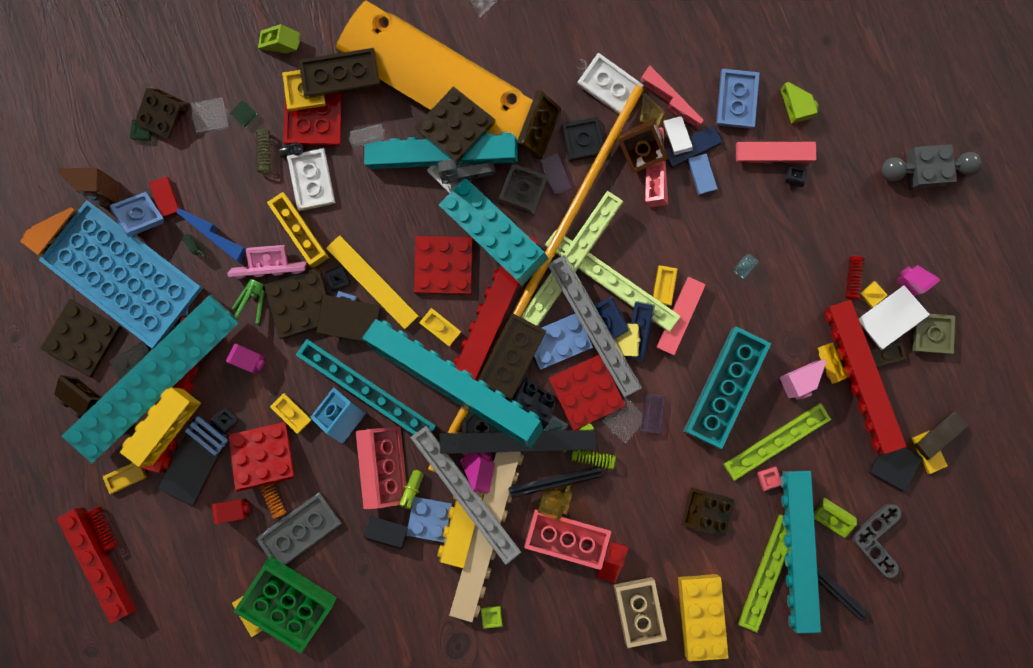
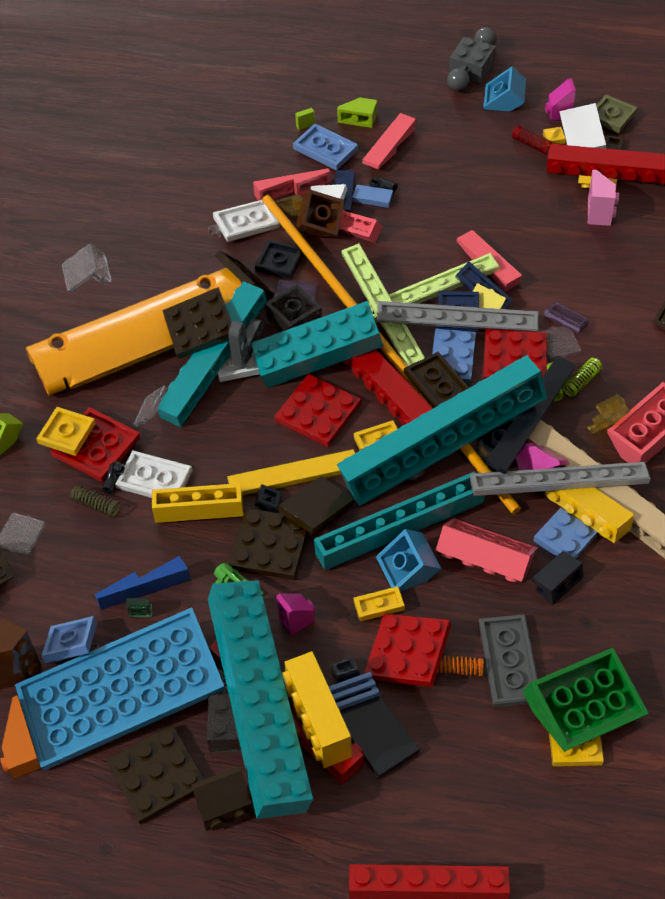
camera: 55 degrees left, 30 degrees down
(108, 546) = (364, 857): red piece -> none
(124, 478) = (343, 807): yellow tile -> none
(164, 197) = (65, 611): red tile -> none
(230, 511) = (449, 707): red slope -> none
(243, 113) = (43, 502): clear green tile -> none
(265, 261) = (205, 547): bright pink bracket -> none
(339, 73) = (76, 392): dark brown tile -> none
(411, 489) = (526, 533): lime axle -> none
(555, 482) = (588, 412): black axle -> none
(665, 284) = (448, 258): yellow tile -> none
(721, 175) = (383, 183): none -> black arm
(727, 387) = (576, 253): teal brick -> none
(745, 266) = (471, 200): clear light blue slope -> none
(761, 59) = (305, 119): none -> lime tile
(776, 441) = (646, 248): lime tile -> none
(795, 176) = (418, 139): black tile -> none
(905, 220) = (505, 91): none -> dark azure slope

